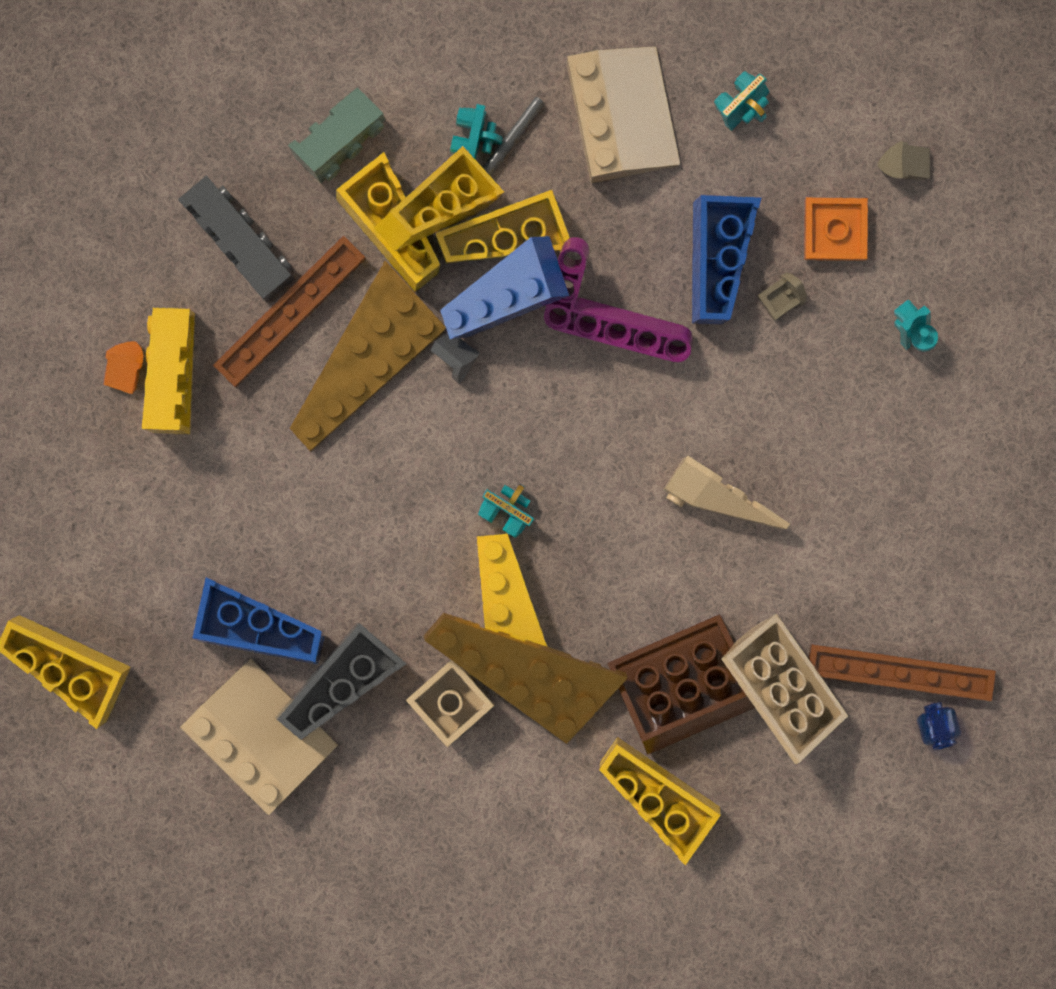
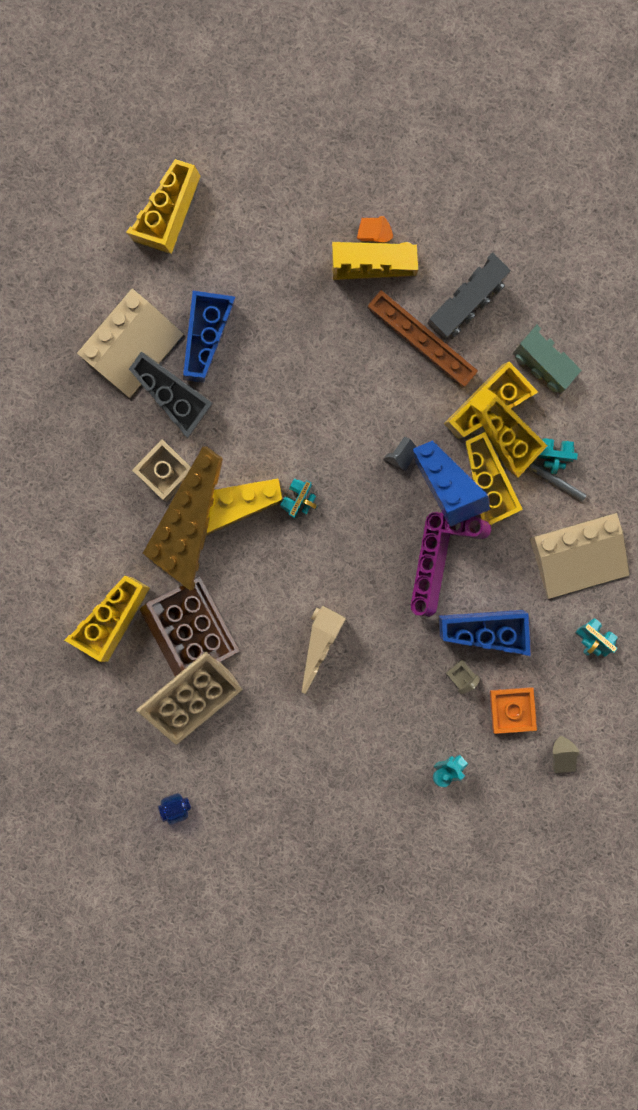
camera: 85 degrees right, 0 degrees up
(377, 344) = (404, 400): pearl gold wing -> none
(902, 672) = (209, 781): dark orange plate -> none

